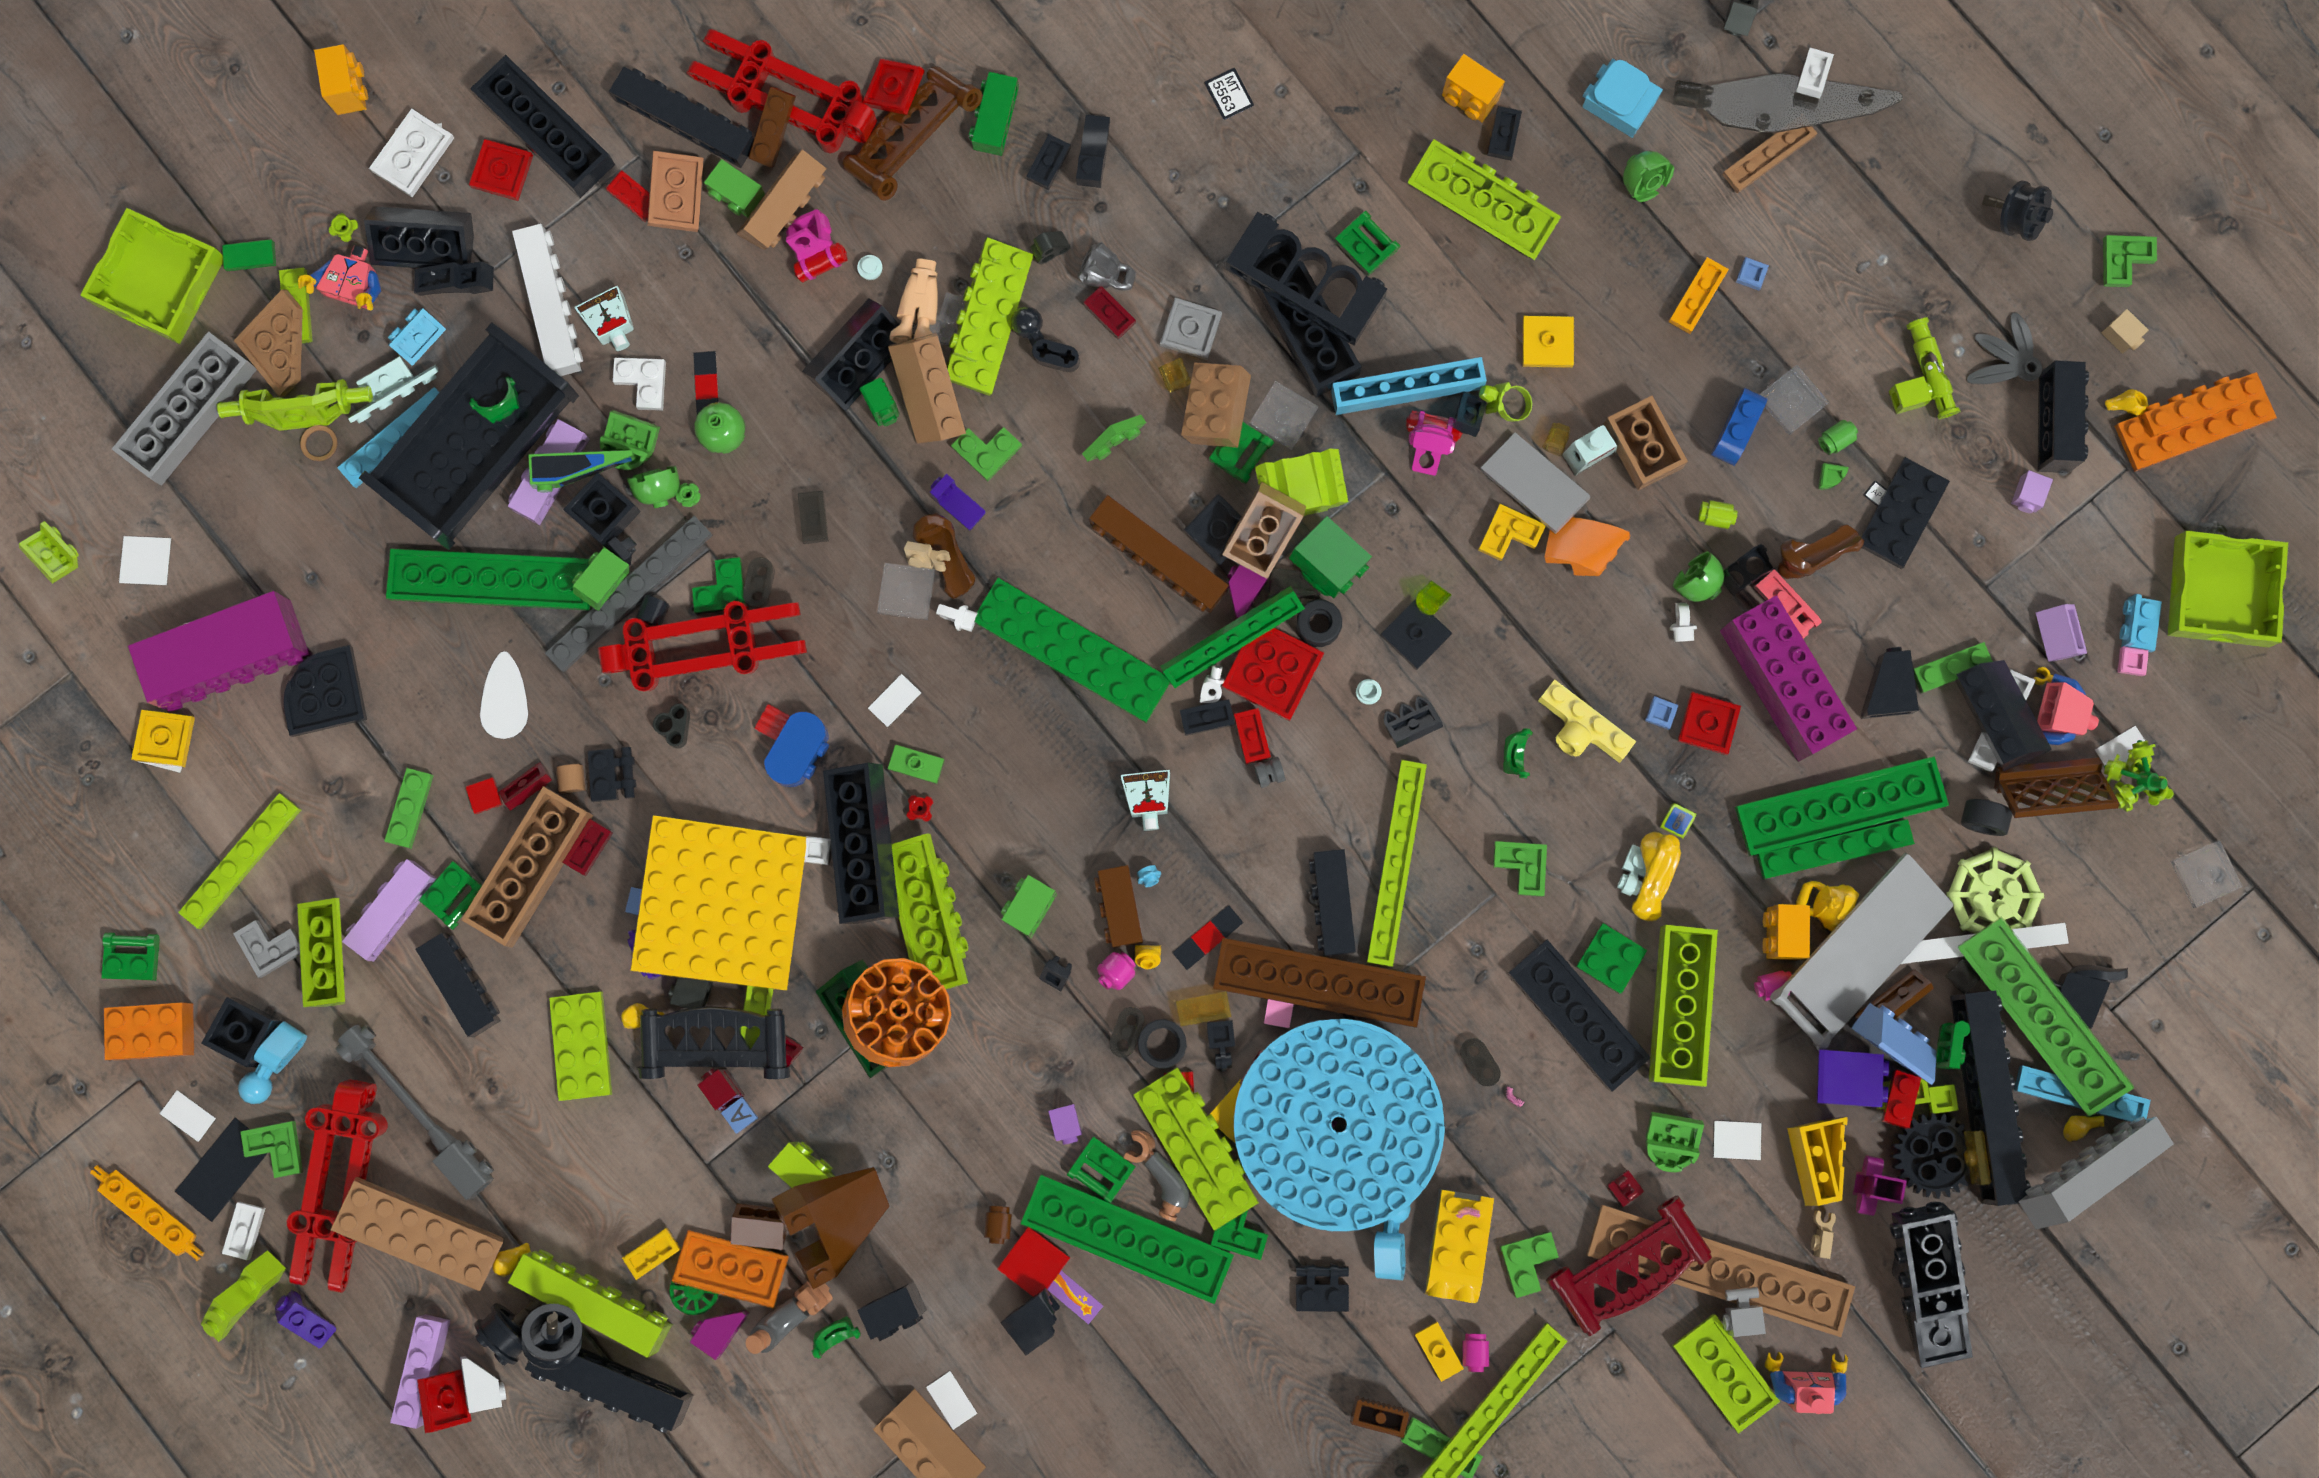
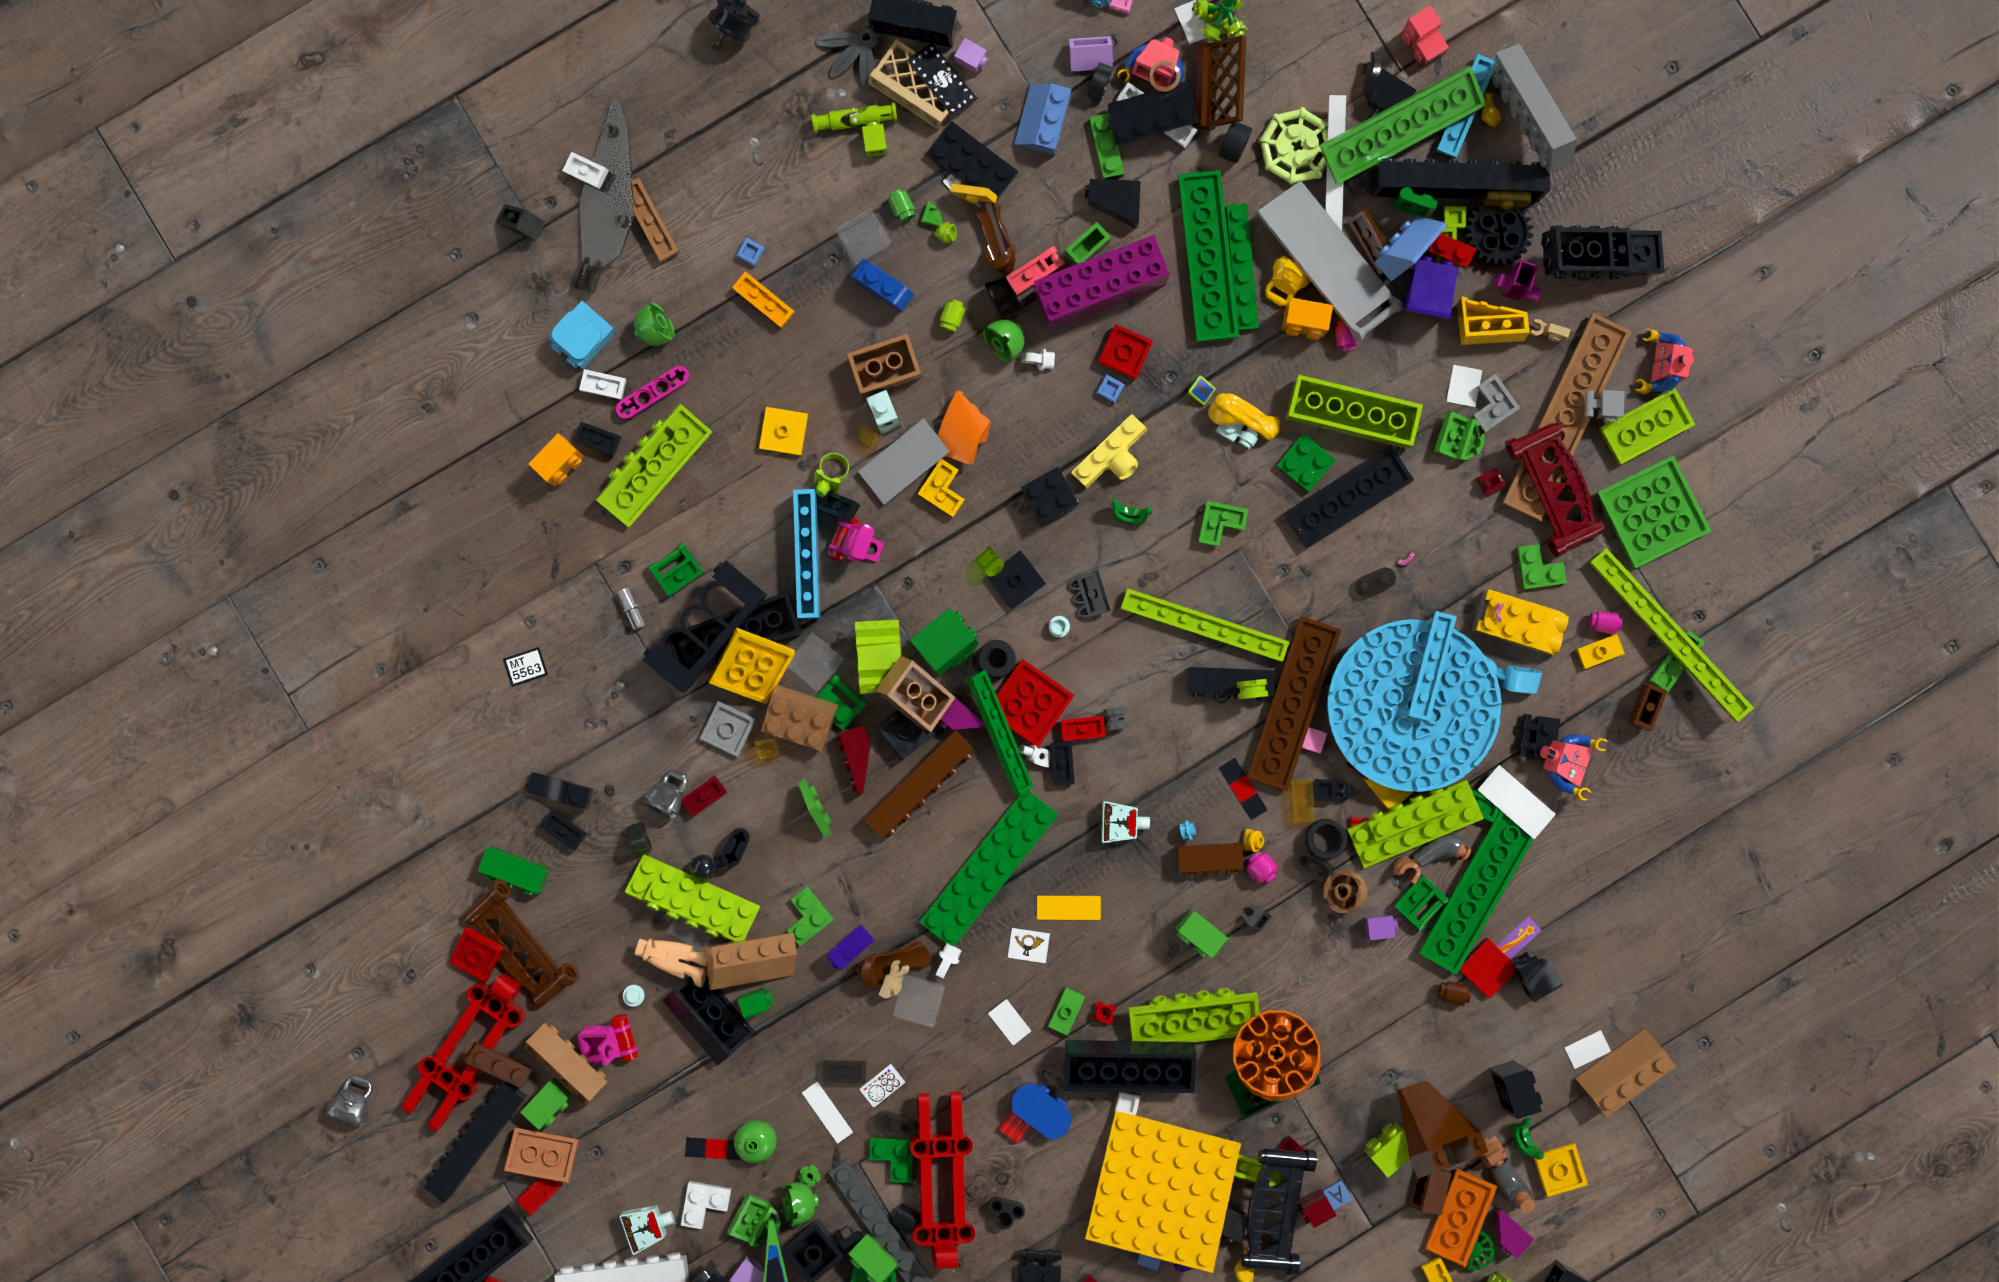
camera: 85 degrees left, 5 degrees up
(763, 505) = (827, 1112): none -> white sticker
(801, 1384) = (1560, 1170): none -> yellow plate
(802, 563) = (882, 1085): none -> white sticker
(987, 710) = (1028, 945): none -> white sticker
(1038, 750) = (1068, 907): none -> yellow sticker
(1102, 1074) = (1345, 891): none -> medium nougat cylinder
(1183, 479) = (857, 749): none -> dark red slope
(1239, 1270) = (1516, 802): none -> white sticker
(1269, 339) = (751, 666): none -> yellow plate
(1298, 1326) = (1568, 761): none -> torso
(1313, 199) = (630, 609): none -> light grey axle
(1329, 925) = (1252, 689): none -> lime wheel
(1390, 1137) = (1432, 666): none -> medium azure plate
(1521, 657) = (1049, 496): none -> black brick
(1564, 190) = (654, 395): none -> dark pink beam
(1568, 130) = (602, 384): none -> white plate
(1621, 1395) = (1653, 512): none -> bright green plate
(1724, 1185) = (1499, 403): none -> light grey plate
(1815, 494) = (946, 232): none -> lime plate
(1832, 659) = (1088, 245): none -> bright green brick
(1867, 516) = (973, 194): none -> yellow plate
(1970, 420) = (902, 94): none -> tan fence
(1973, 588) = (1043, 118): none -> medium blue slope
(1997, 463) = (942, 79): none -> black sticker
(2029, 647) = (1099, 81): none -> pearl dark grey piece
(2039, 729) = (1164, 89): none -> medium nougat piece
(2158, 1030) = (1423, 36): none -> coral brick

